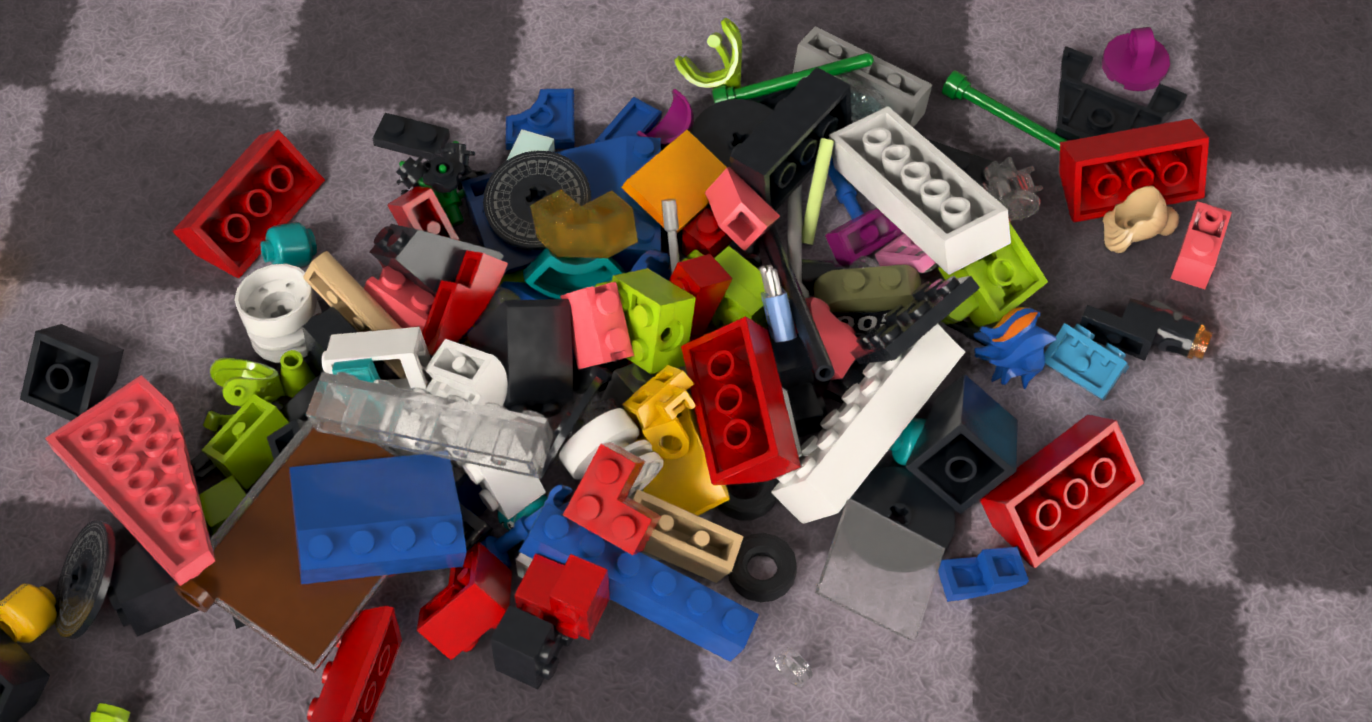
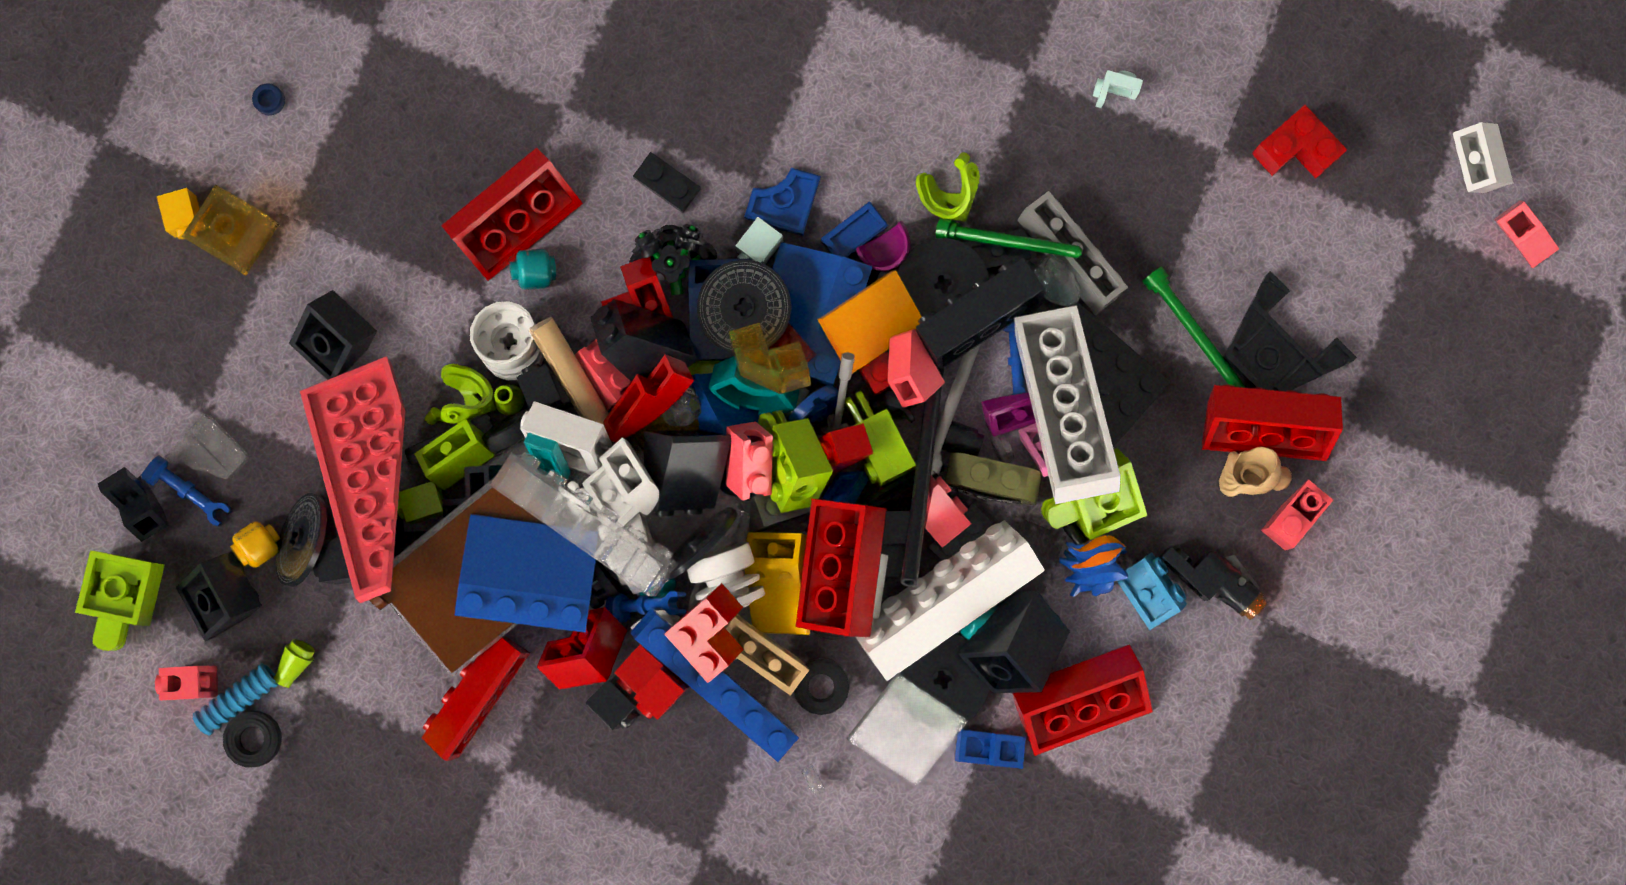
camera: 25 degrees right, 25 degrees up
(657, 414) = (765, 546): yellow piece -> none
(776, 306) = (901, 491): medium blue piece -> none
(817, 190) = (988, 360): yellowish green bar -> none
(913, 321) = (1008, 539): black plate -> none
(1004, 187) = (1153, 402): clear piece -> none
(1136, 60) = (1329, 301): magenta tile -> none

